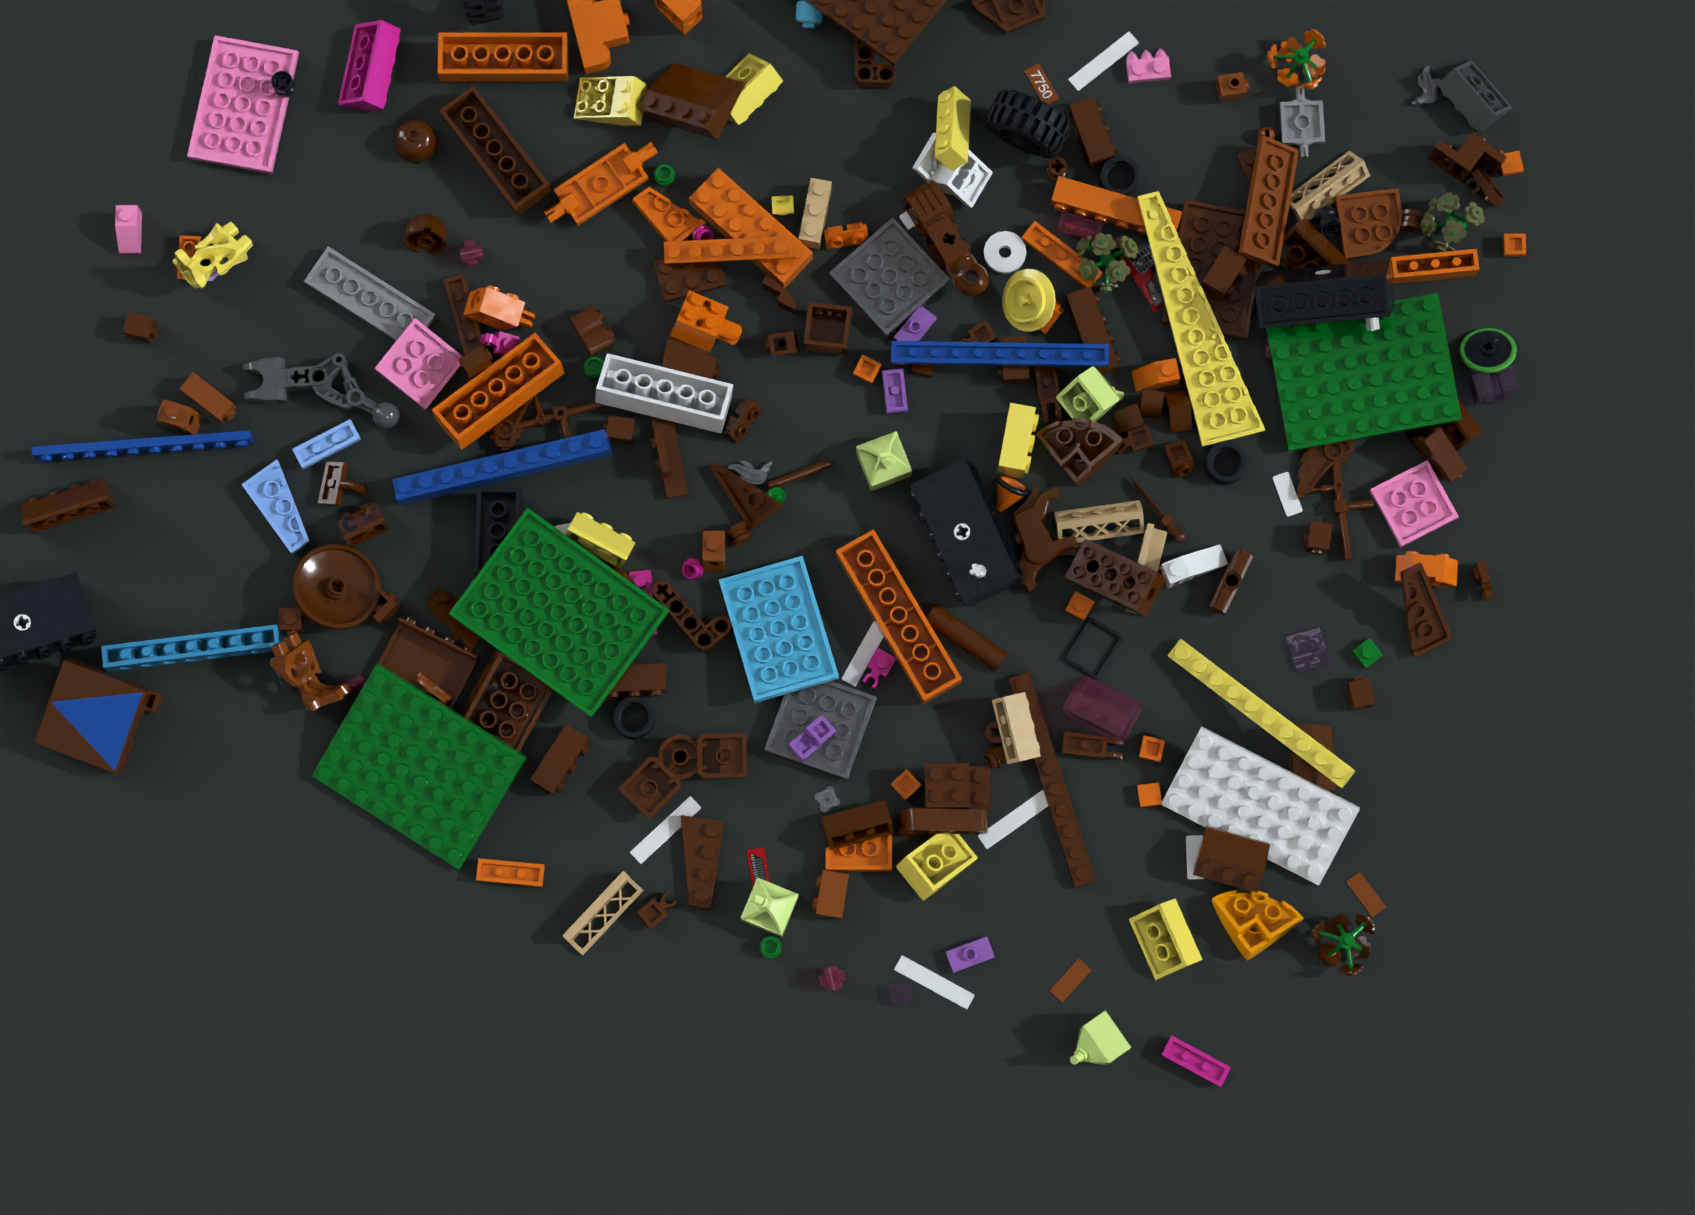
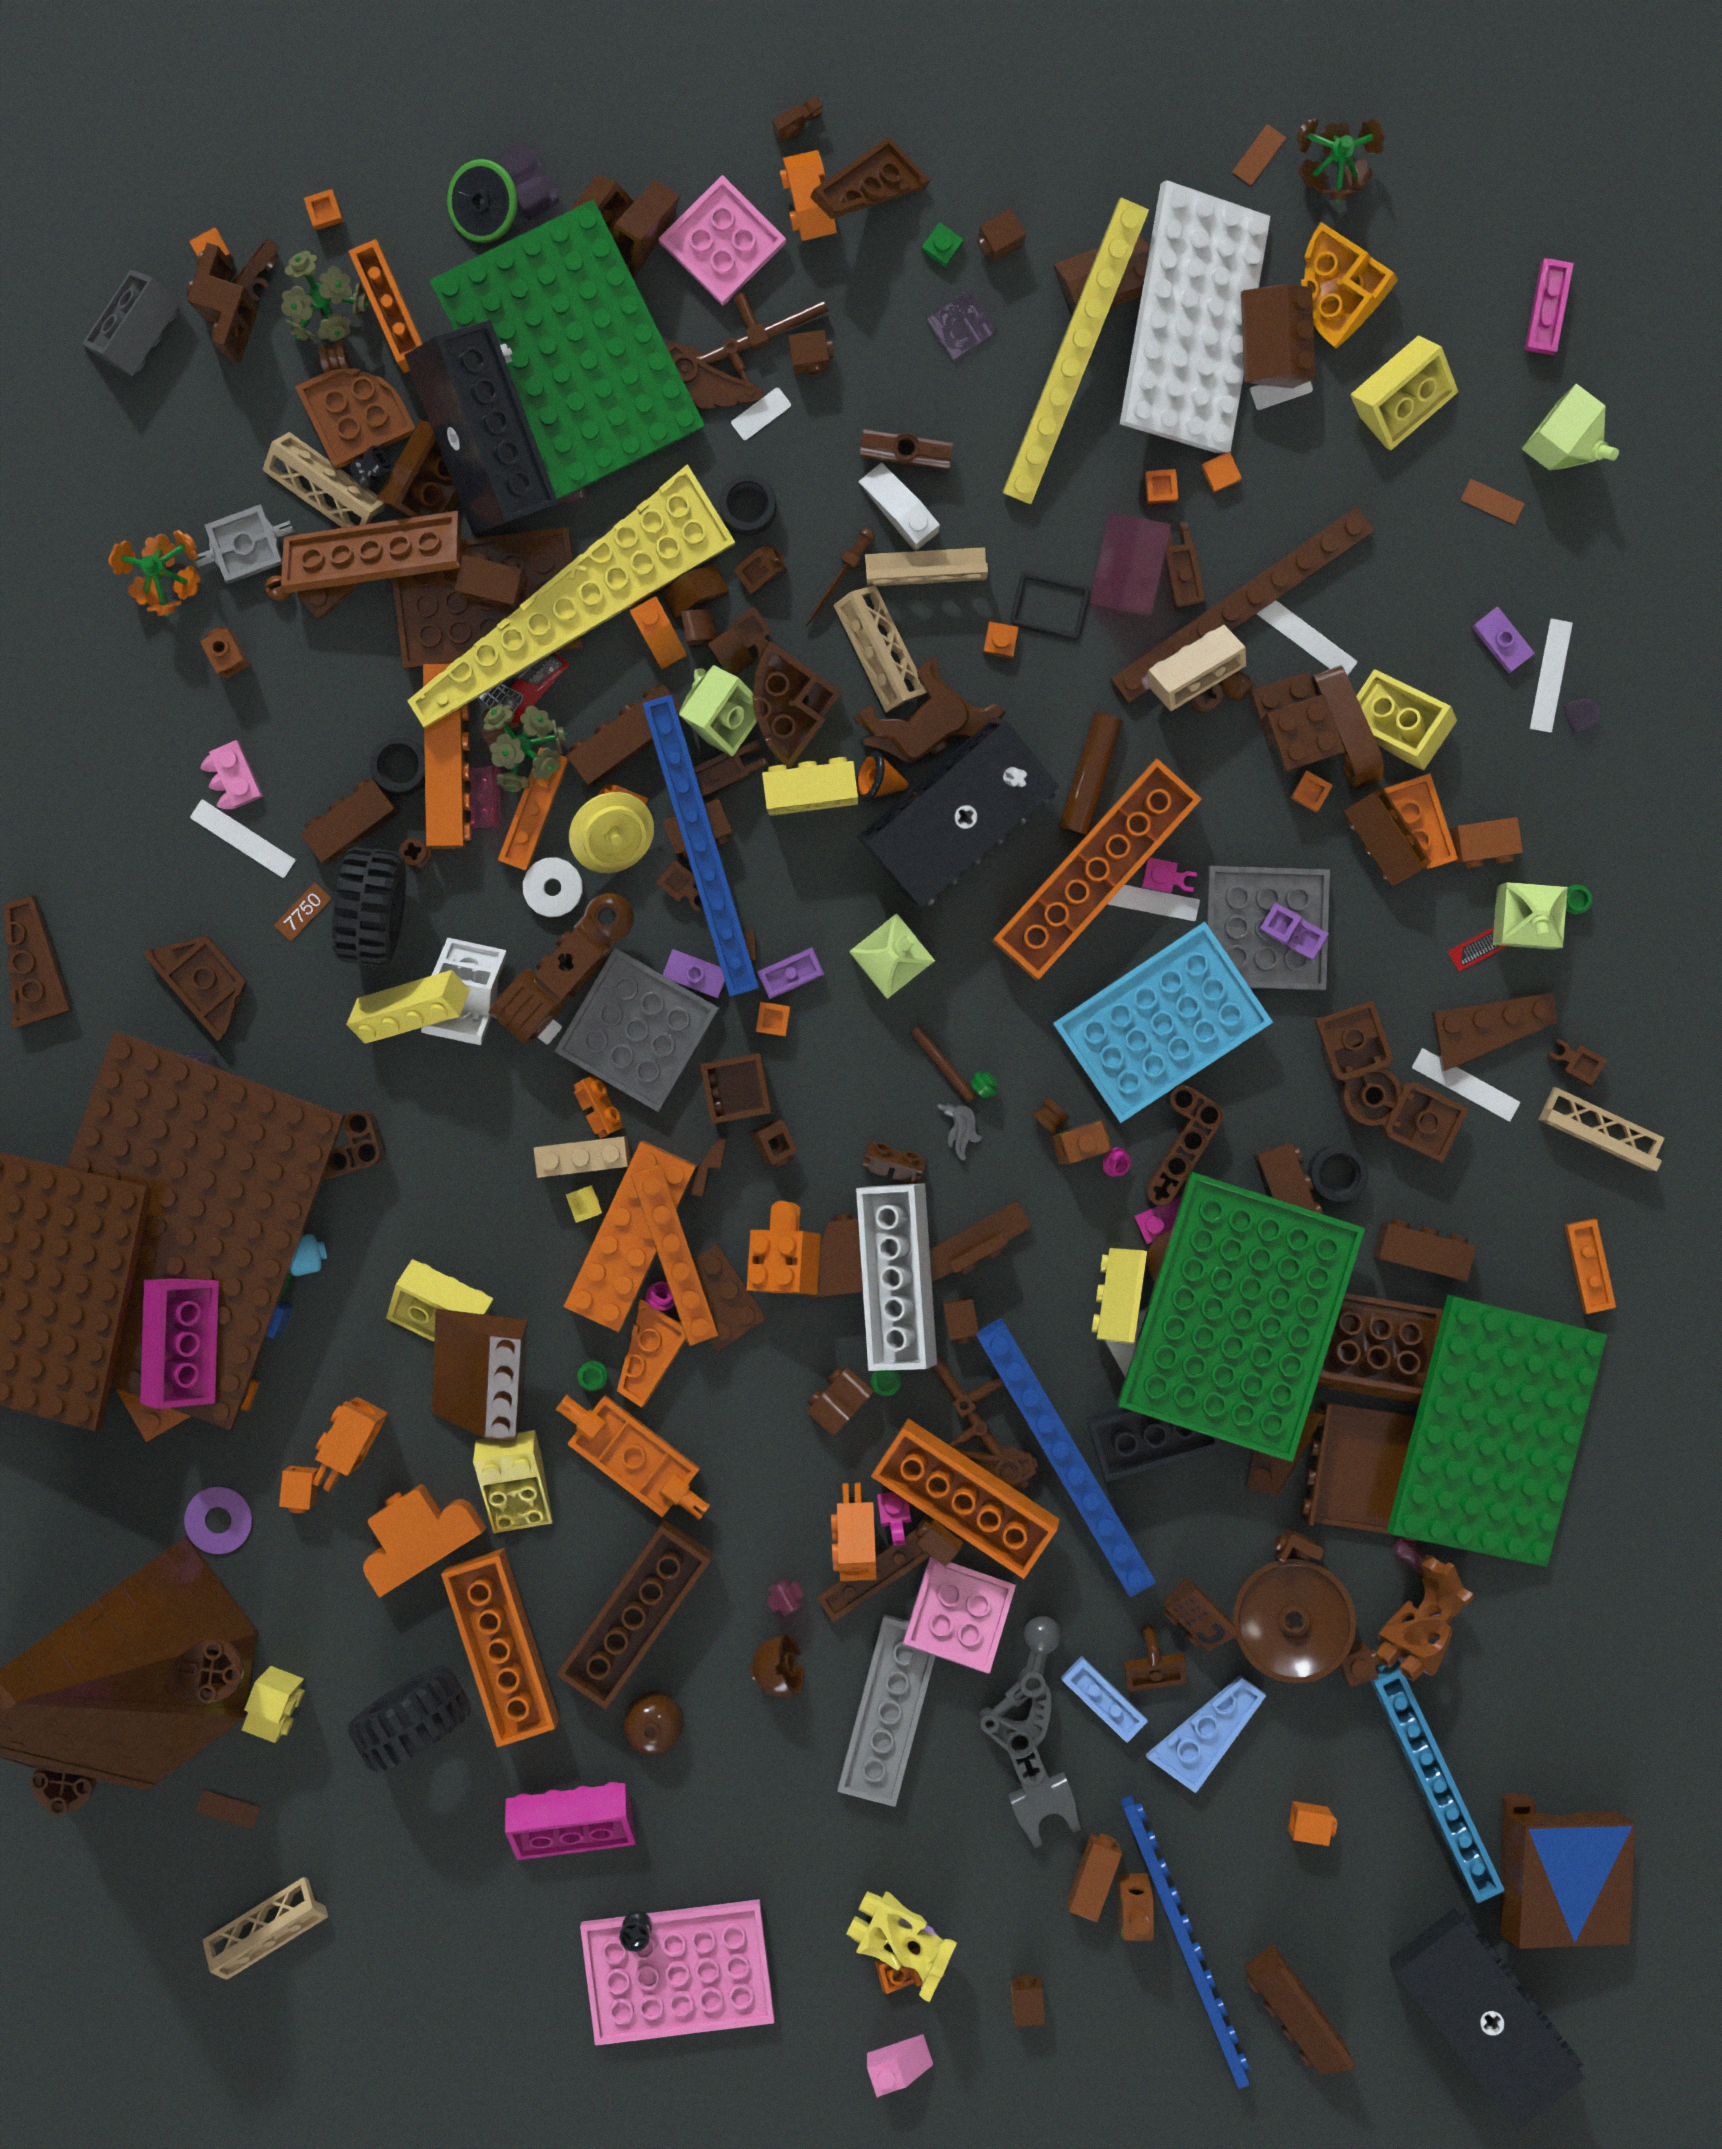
camera: 105 degrees left, 10 degrees up
(192, 556) = (1311, 1823): none -> orange brick
(432, 689) = (1392, 1450): dark orange piece -> none
(749, 501) = (1002, 1117): reddish brown wing -> none
(824, 805) = (1370, 887): clear plate -> none
(832, 978) = (1595, 805): clear pink gear -> none
(1115, 578) = (969, 614): reddish brown brick -> none
(1428, 87) = (138, 390): flat silver piece -> none

